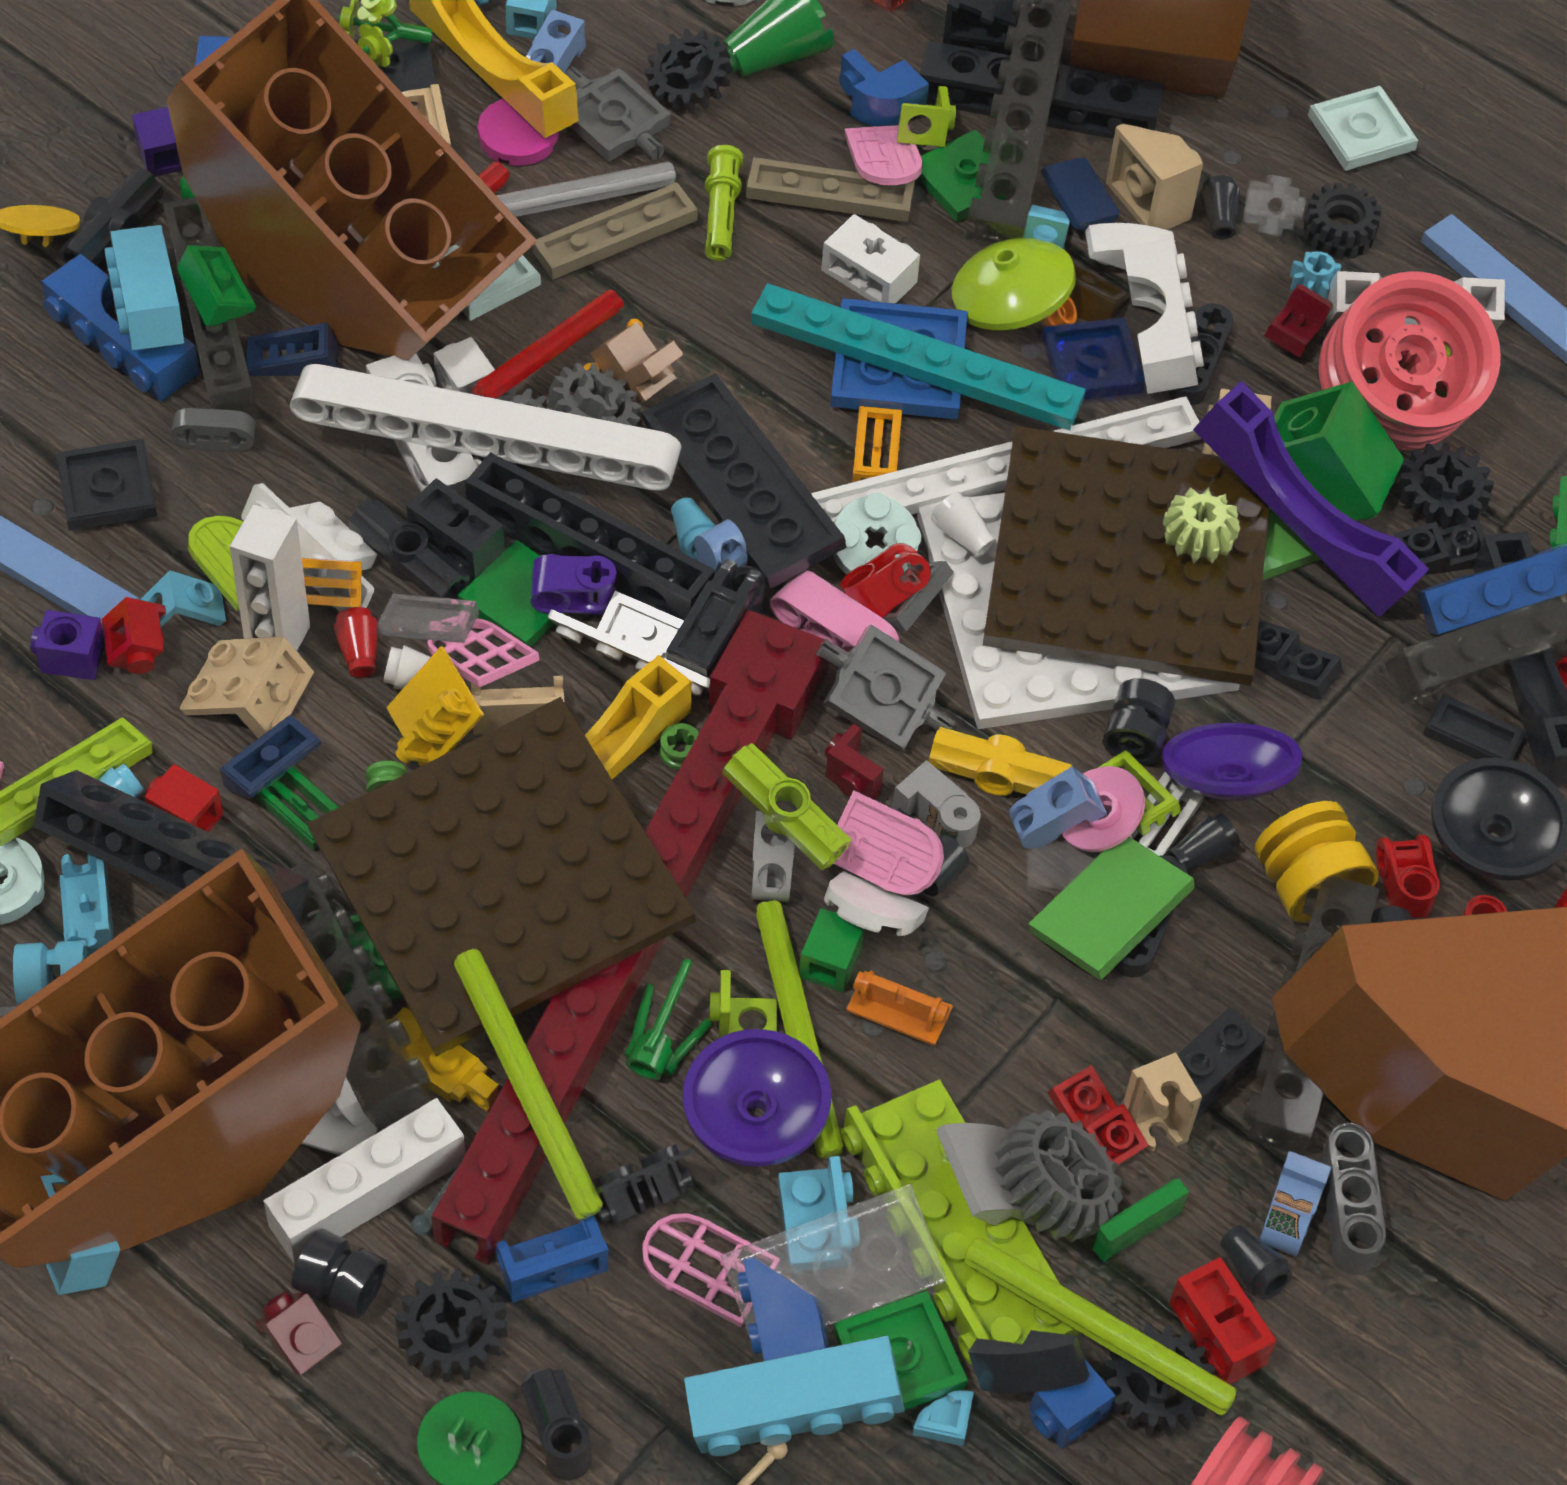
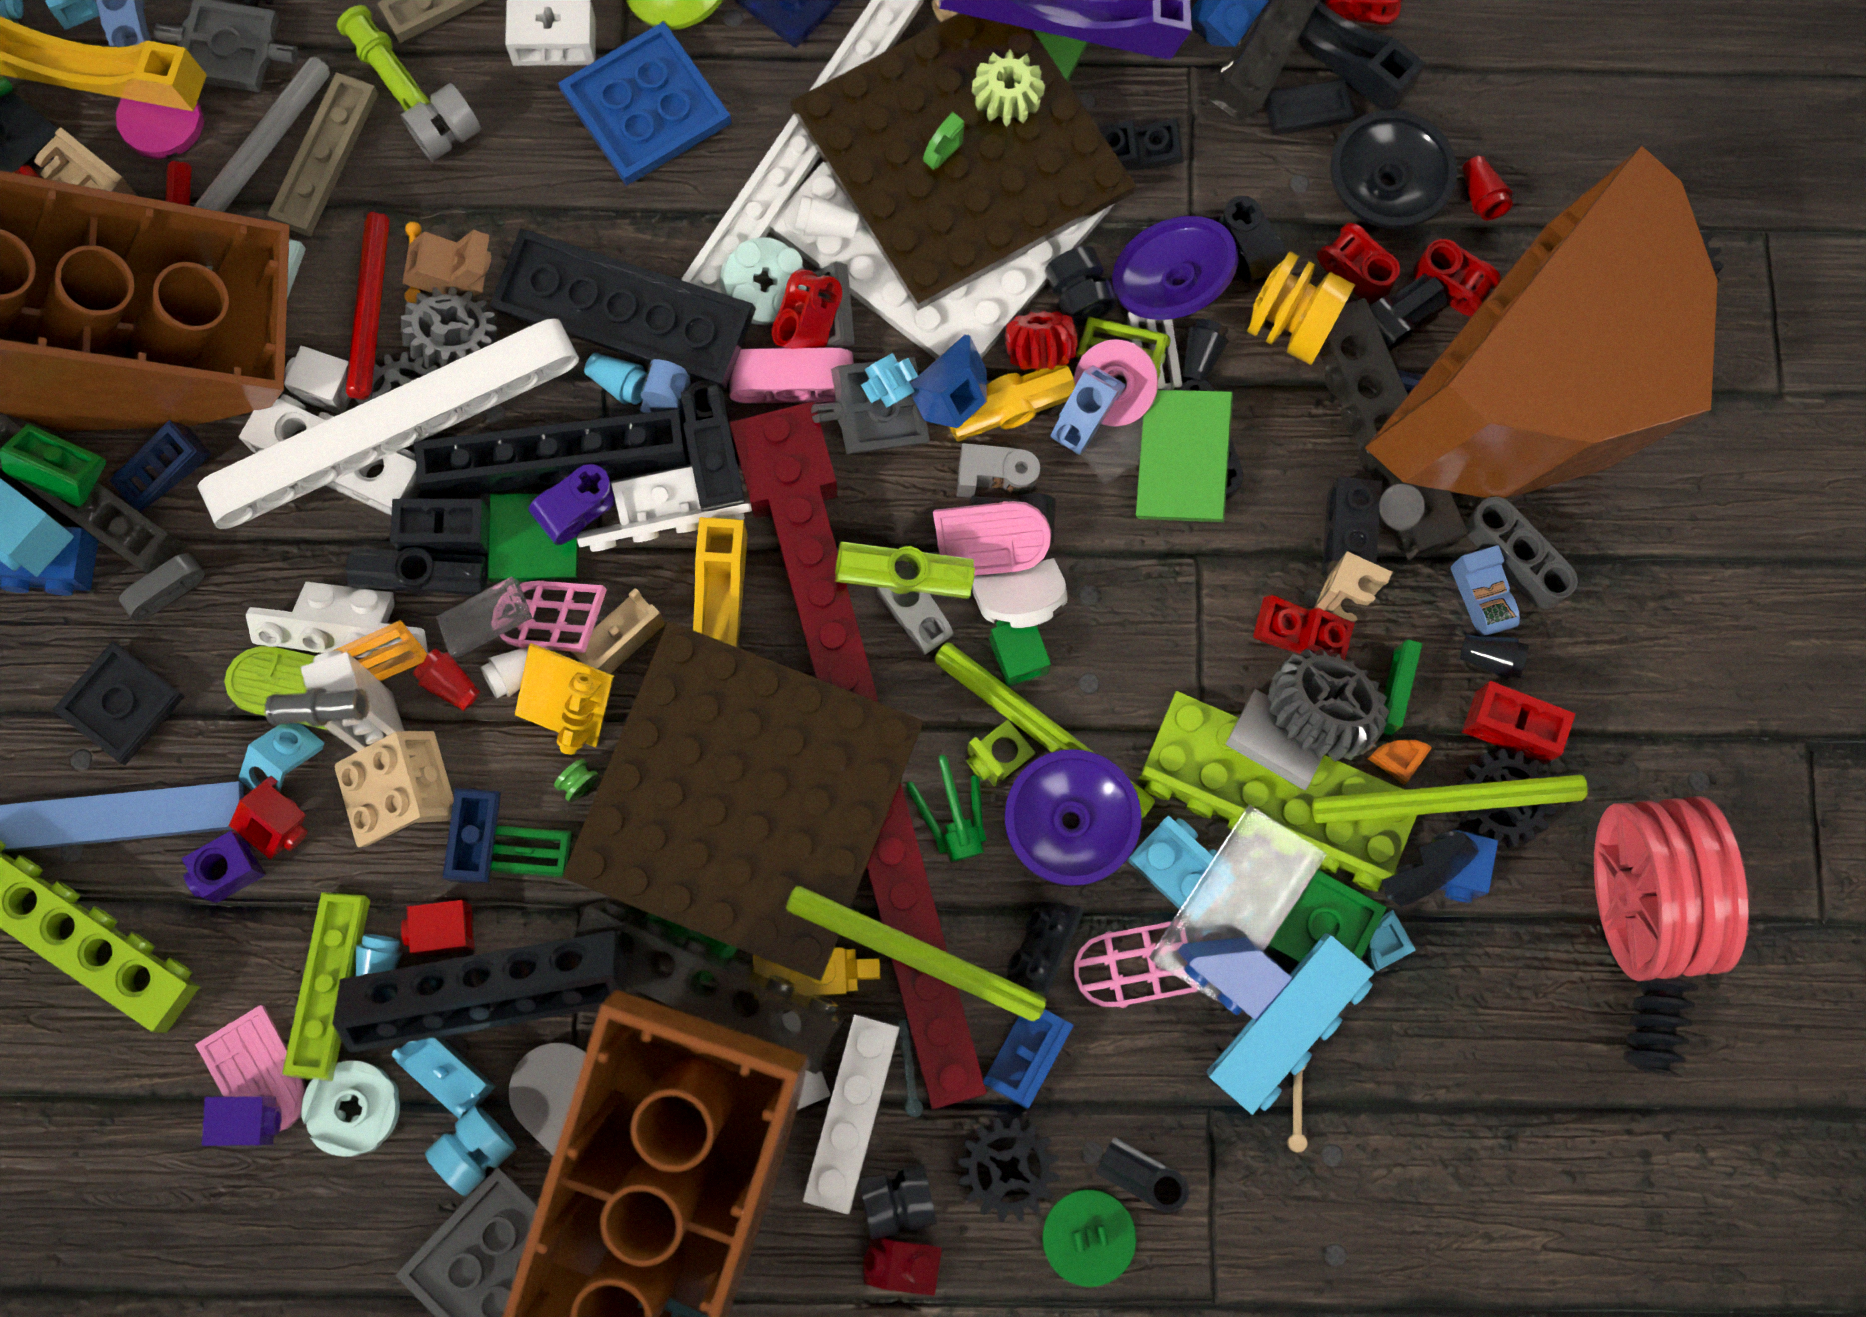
camera: 40 degrees left, 20 degrees up
(239, 532) = (317, 706): none -> dark grey pin
(669, 739) = (779, 570): bright green bush -> none
(739, 266) = (452, 113): none -> light grey wheel
(851, 769) = (914, 494): dark red bracket -> none
(879, 414) = (708, 220): light orange tile -> none
(898, 1007) = (1101, 656): orange hinge -> none
(902, 662) = (889, 380): none -> medium azure gear
(918, 356) = (661, 93): teal plate -> none
(957, 708) = (952, 385): none -> blue slope
(1065, 733) = (1041, 340): none -> red gear
(1095, 1281) = (1400, 758): none -> orange tile
(1112, 528) = (945, 141): none -> bright green tile
(1265, 1068) = (1401, 506): none -> clear tile
(1325, 775) = (1256, 242): none -> black piece

